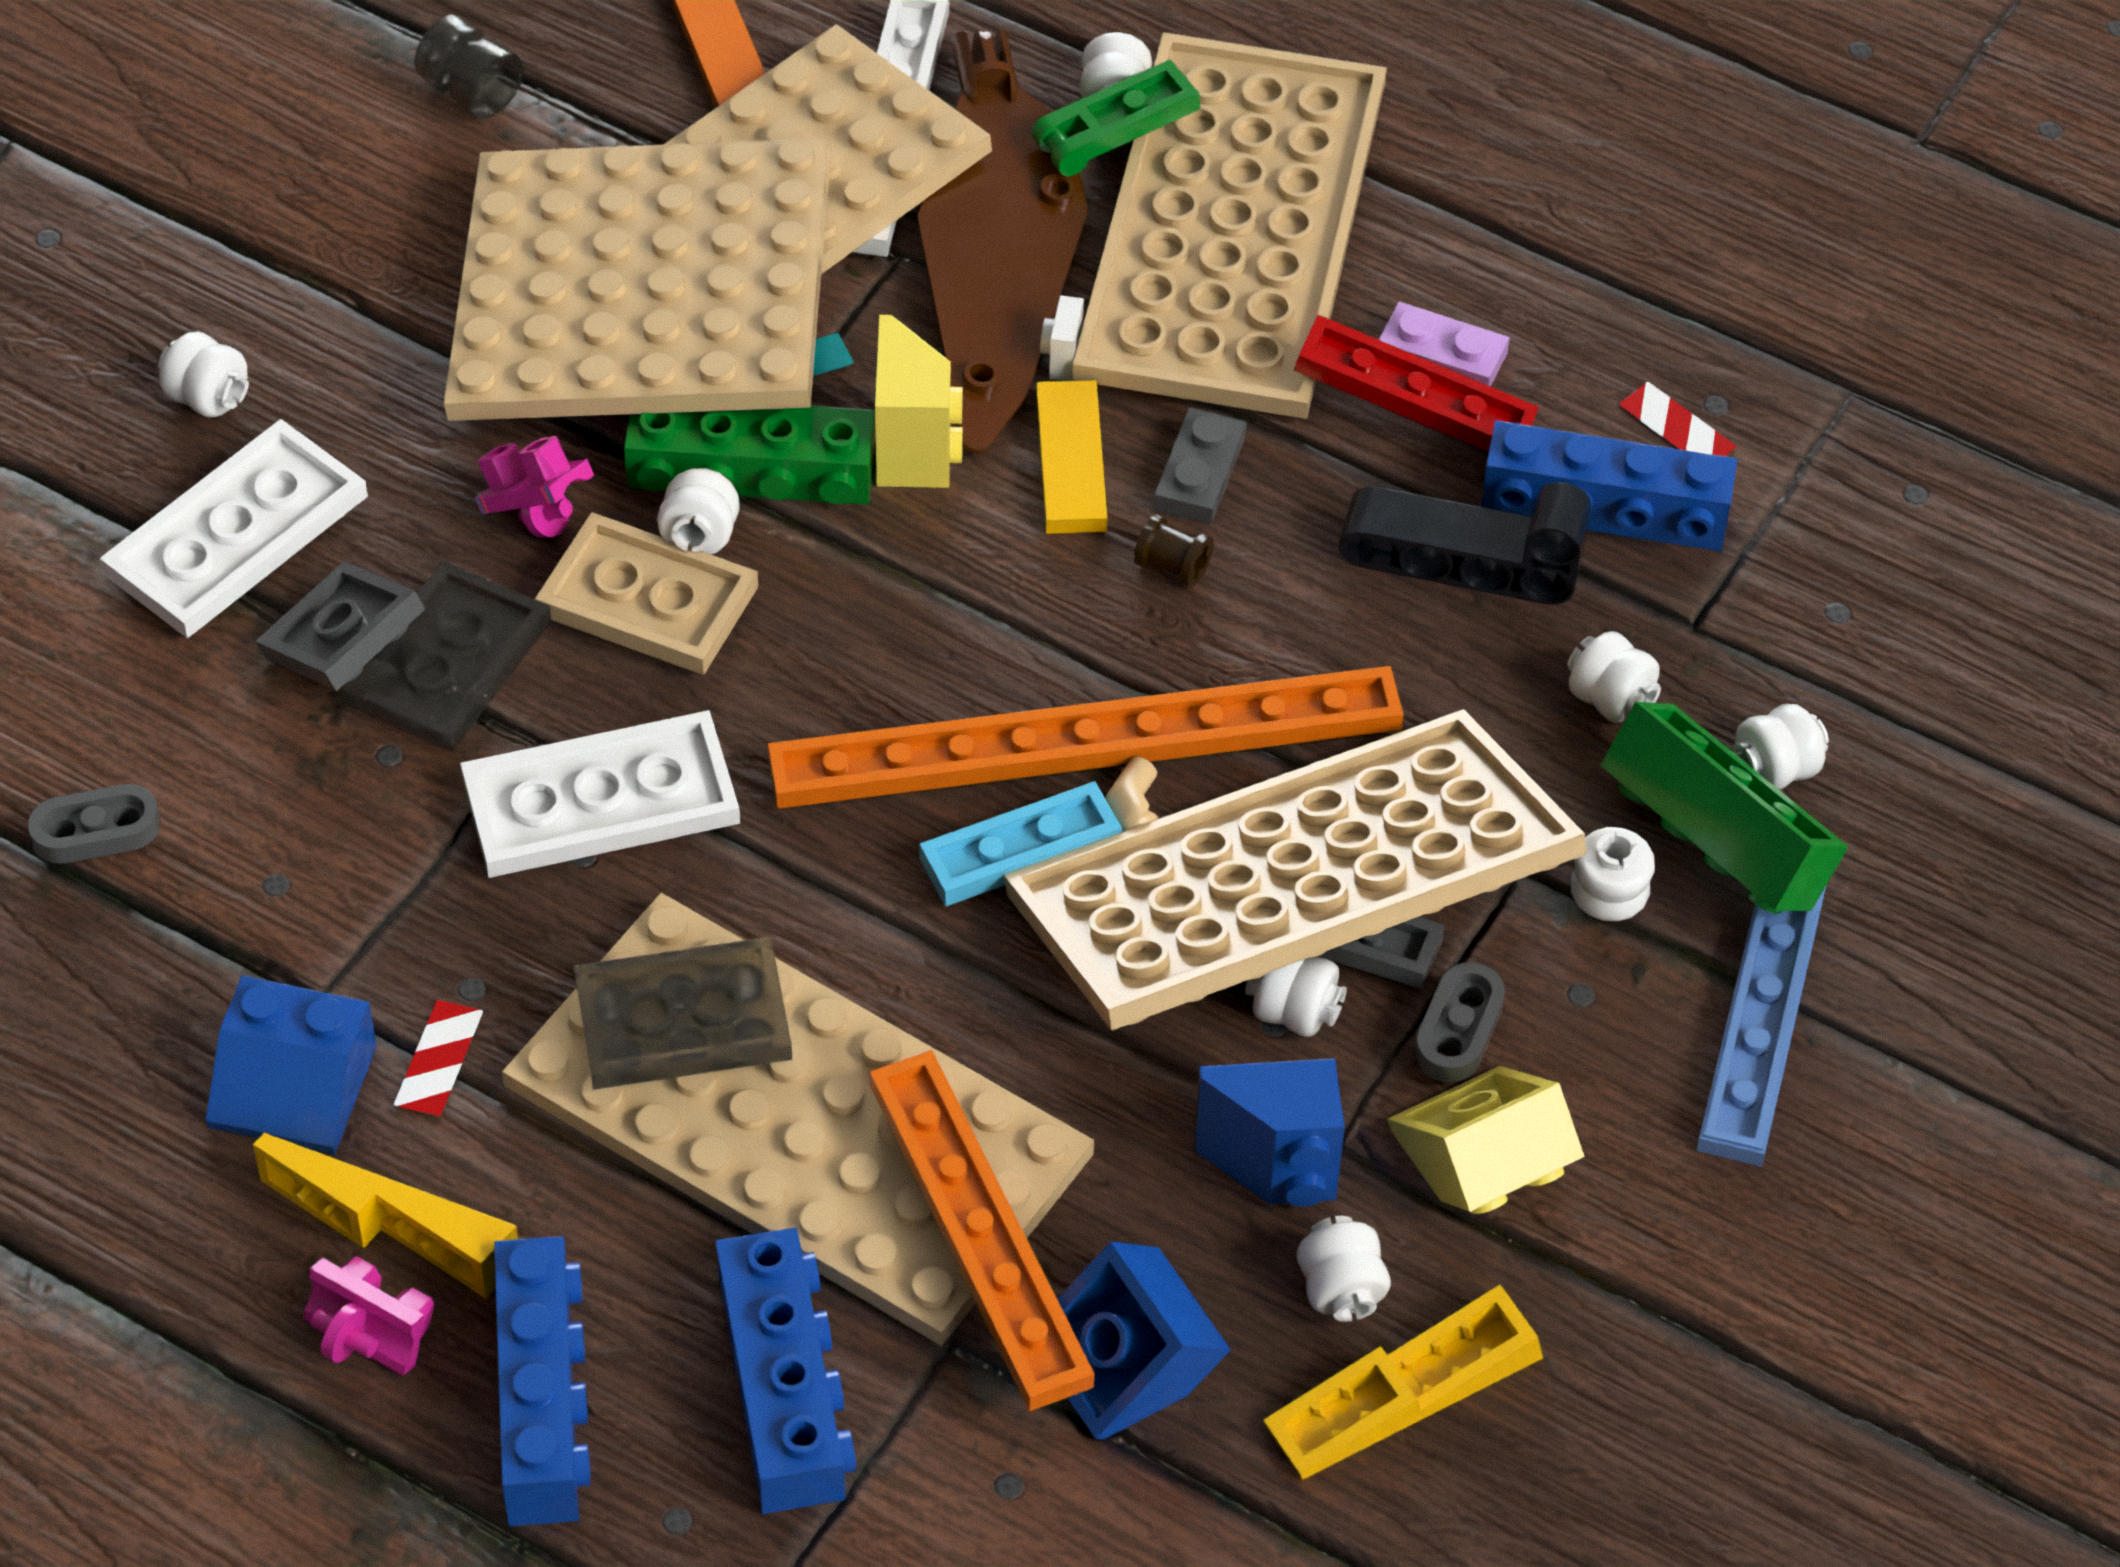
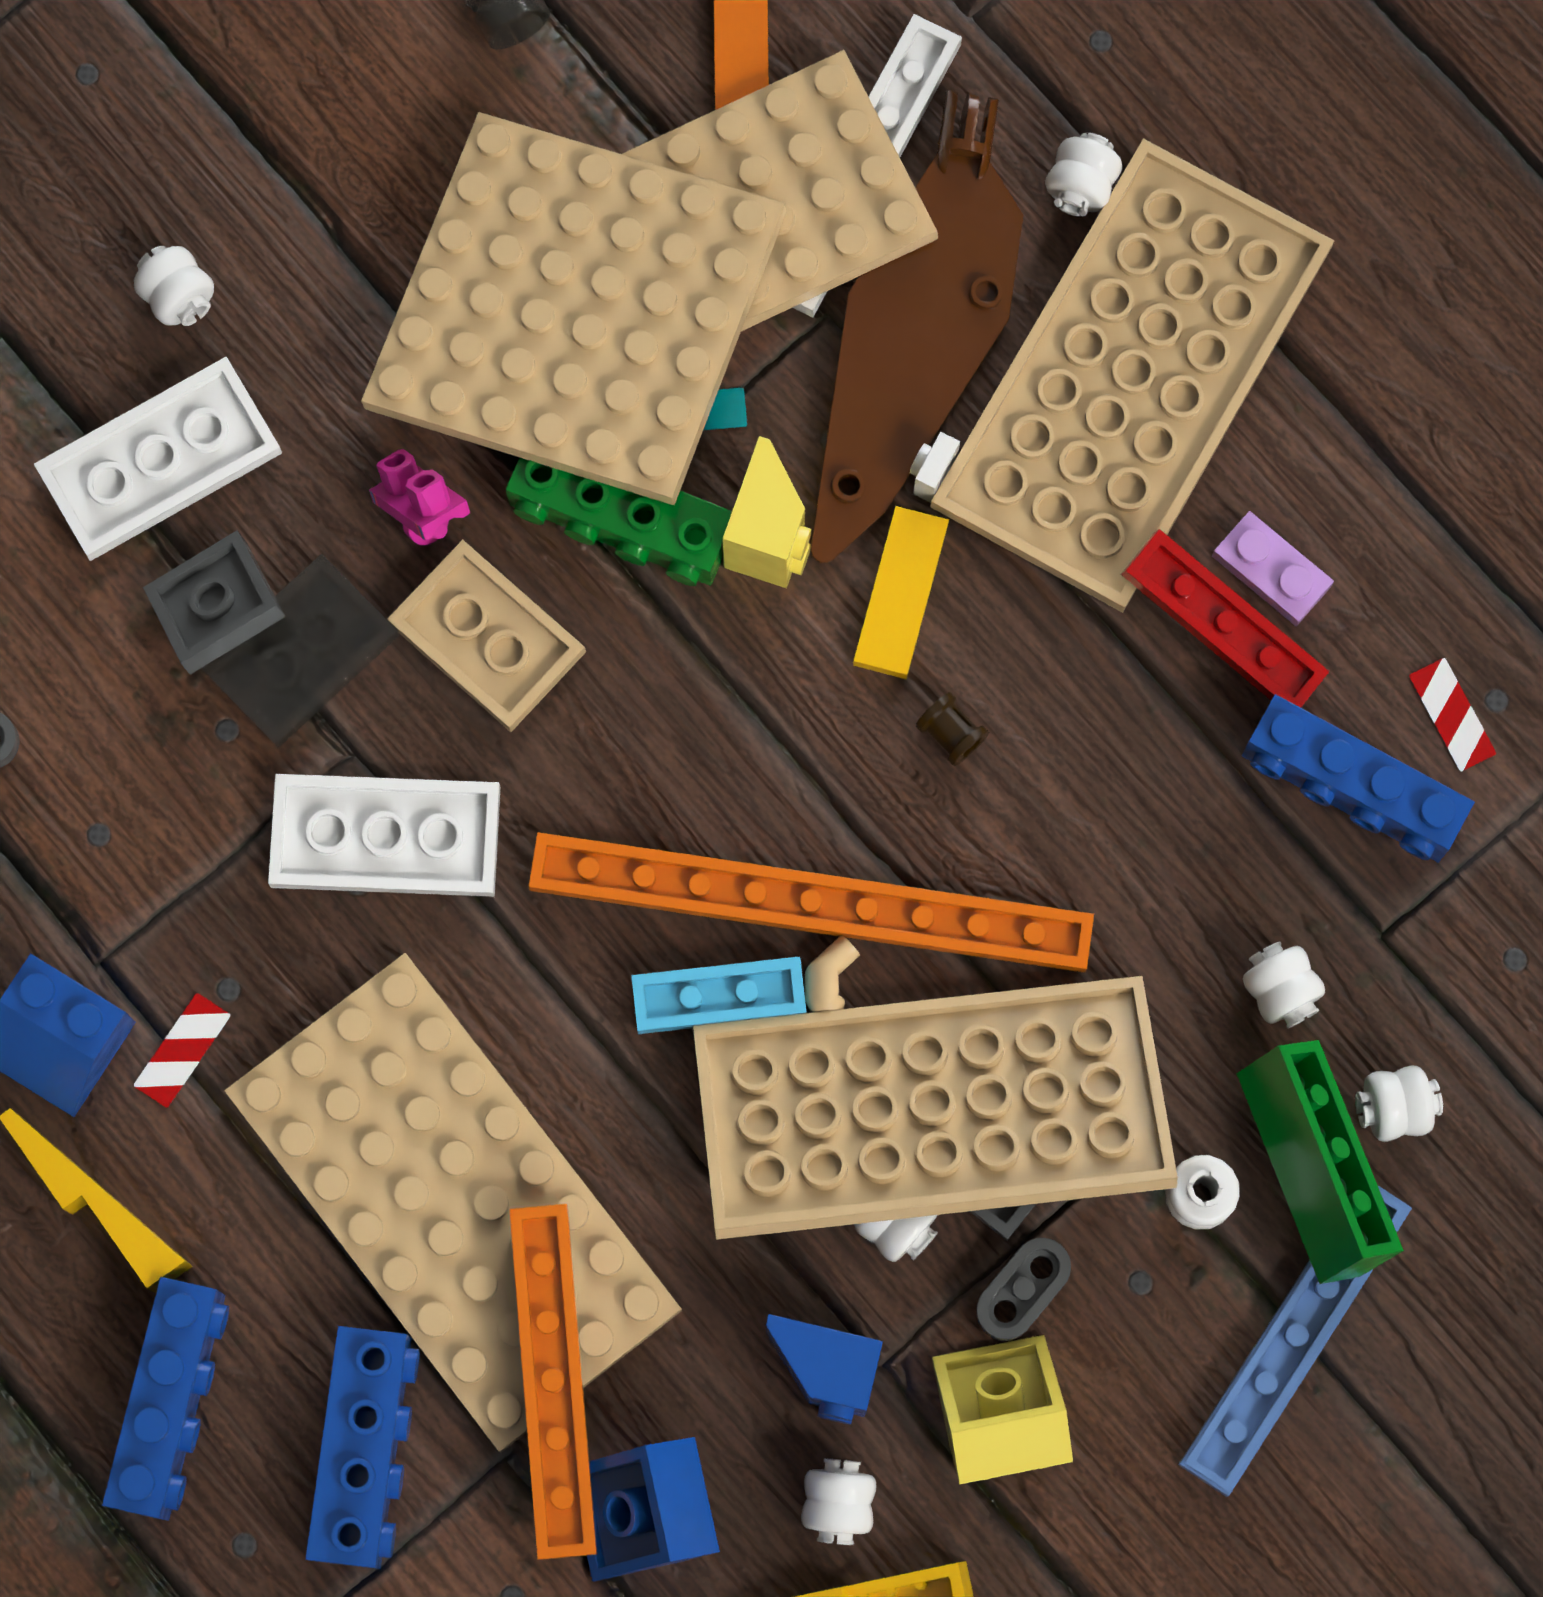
camera: 20 degrees right, 25 degrees up
(364, 1319) = (35, 1273): dark pink hips -> none
(682, 1013) = (378, 1096): clear smoke plate -> none
(699, 510) = (552, 571): white piece -> none
(1115, 116) = (1061, 236): green plate -> none
(1200, 466) = (1010, 635): dark grey plate -> none
(1472, 544) = (1210, 801): black beam -> none

